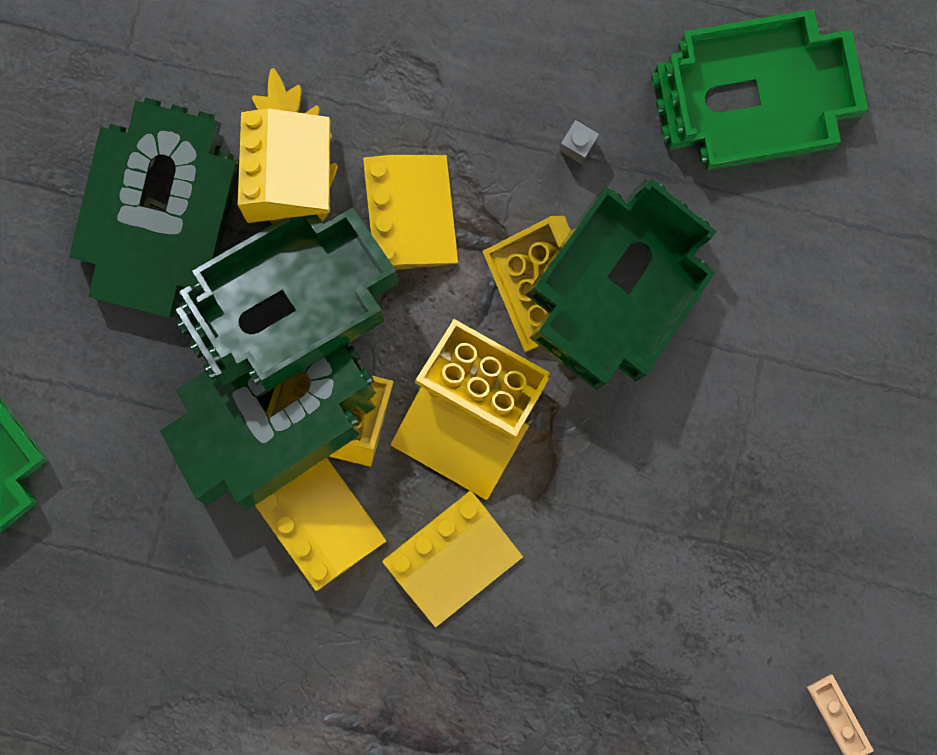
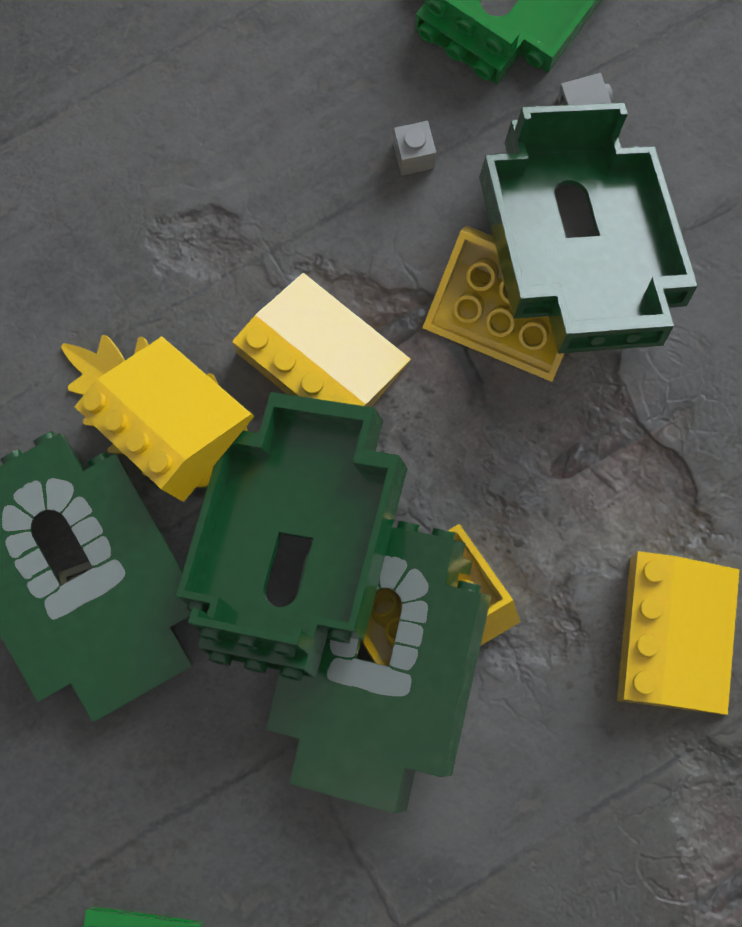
camera: 45 degrees left, 5 degrees down
(321, 524) = (531, 723): yellow slope -> none
(455, 443) = (571, 512): yellow slope -> none
(483, 378) = (548, 435): yellow slope -> none
(709, 206) = (585, 91): none -> light grey brick

